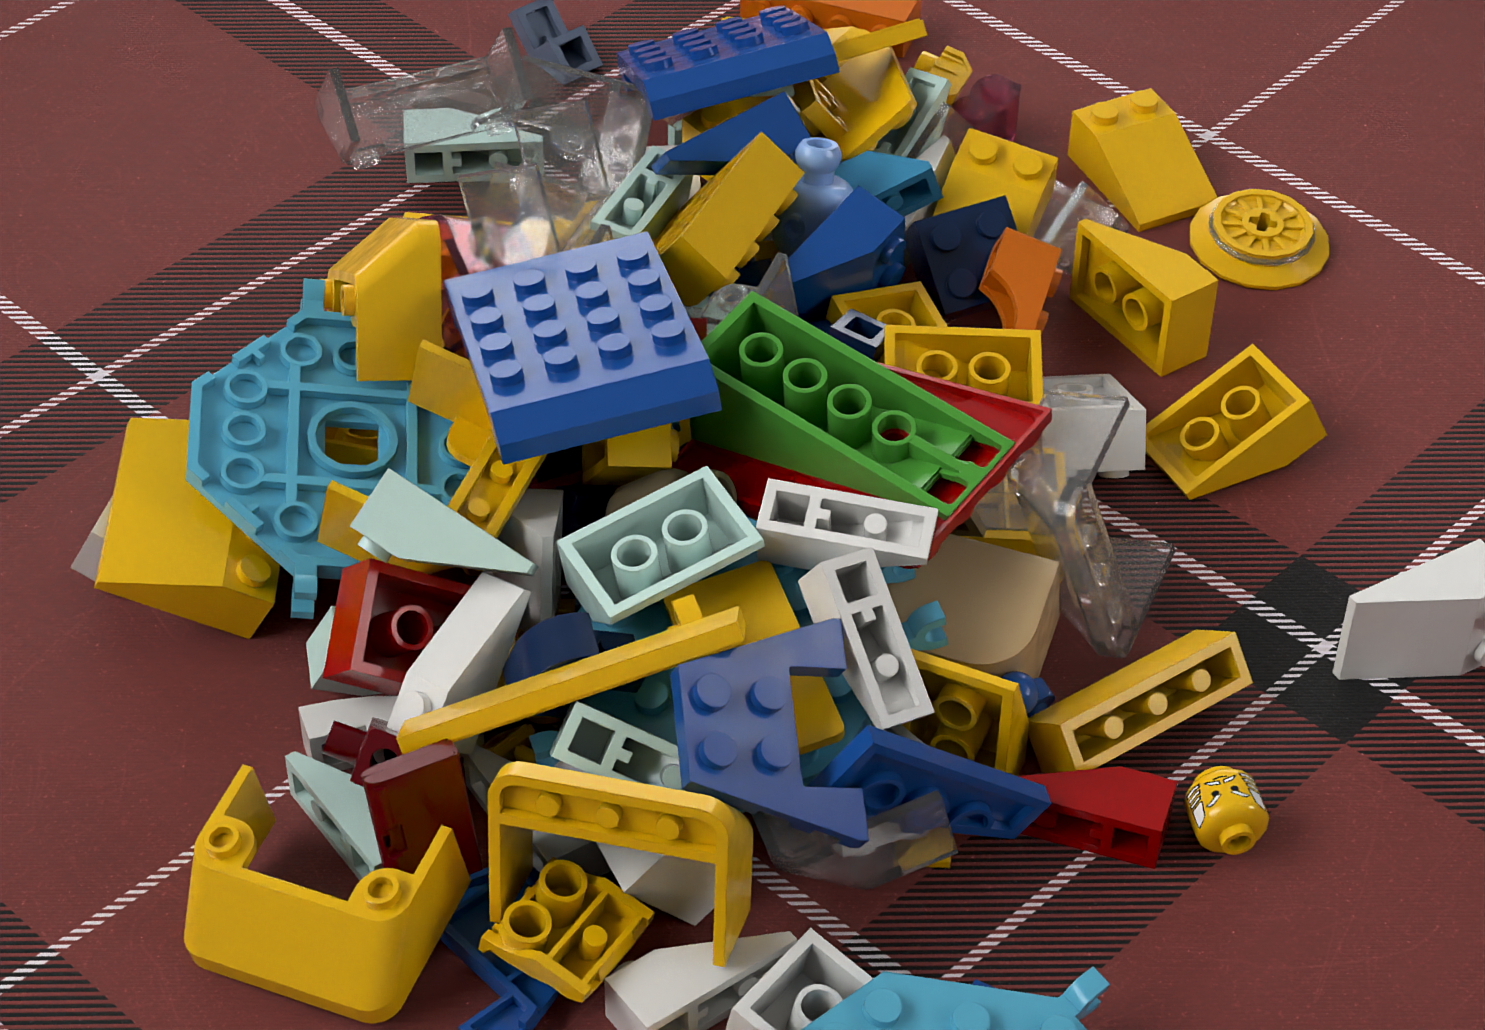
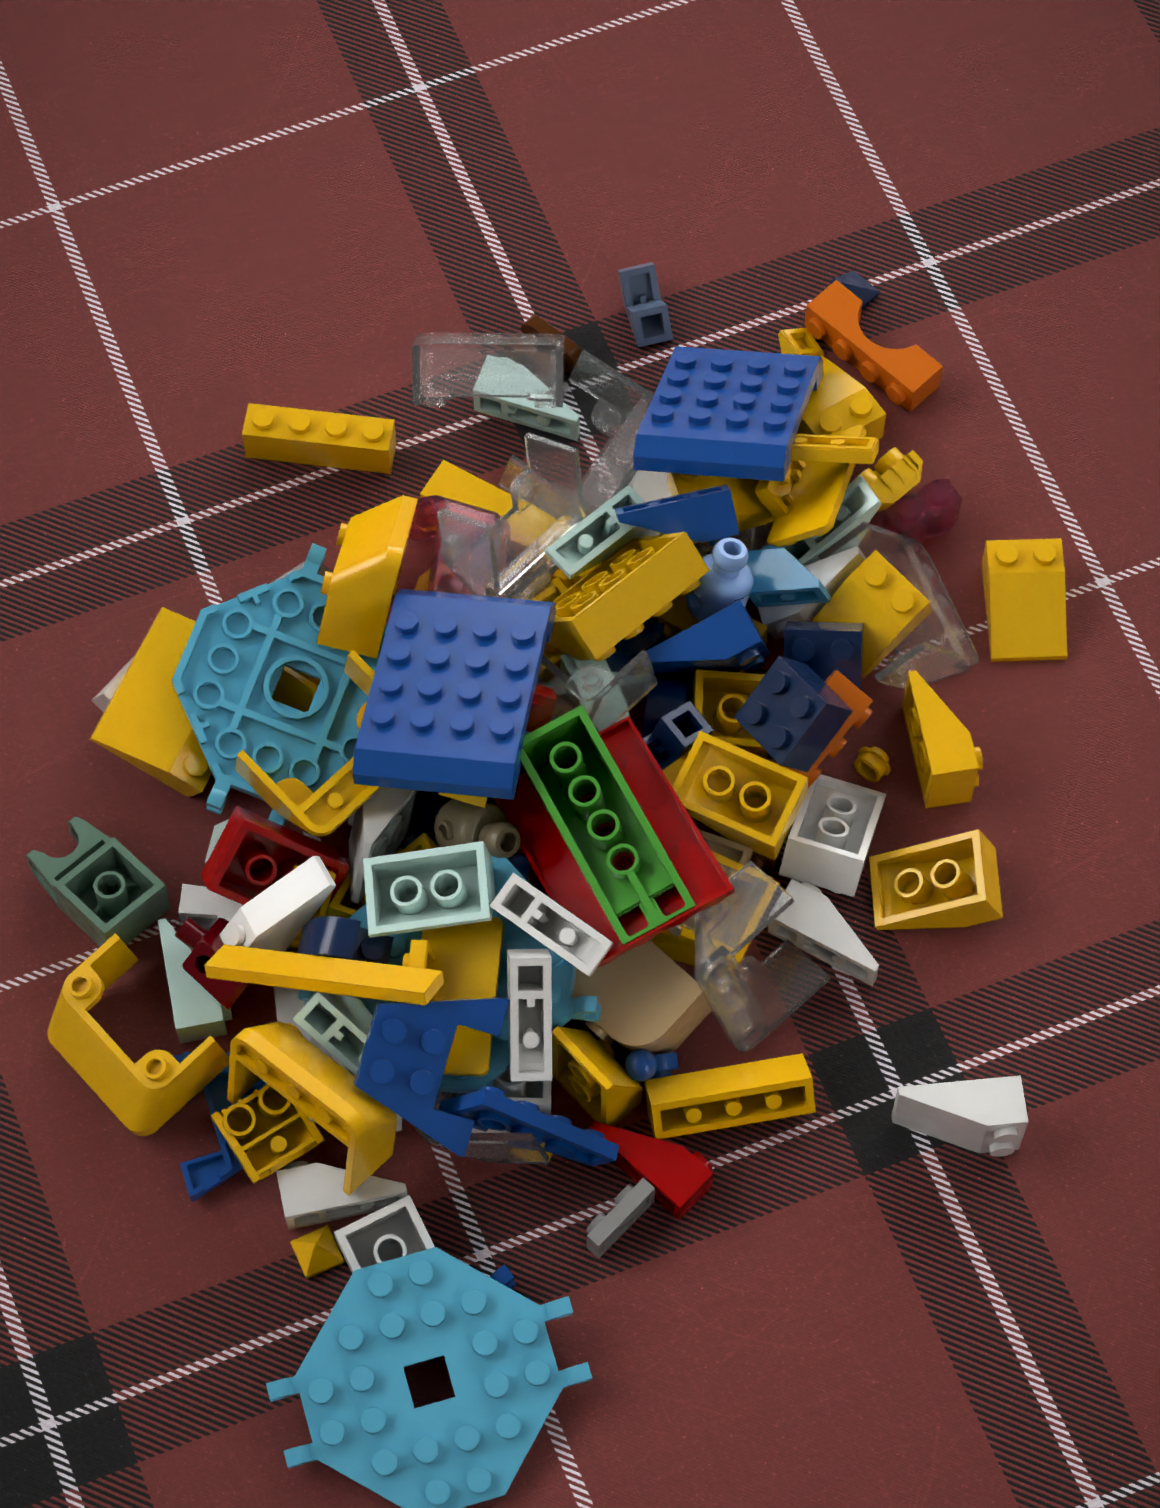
camera: 25 degrees right, 20 degrees up
(177, 747) = (101, 885): none -> sand green brick
(237, 242) = (319, 438): none -> yellow brick
(412, 800) = (207, 1010): dark red piece -> none
(421, 529) = (287, 817): light aqua slope -> none
(981, 276) = (793, 714): none -> dark blue brick
(1074, 357) = (872, 763): none -> yellow plate
(1078, 898) = (608, 1228): none -> light grey plate
(1152, 512) = (820, 930): none -> white slope
(1226, 810) = (739, 1203): yellow head -> none
(1259, 240) = (1079, 731): yellow piece -> none

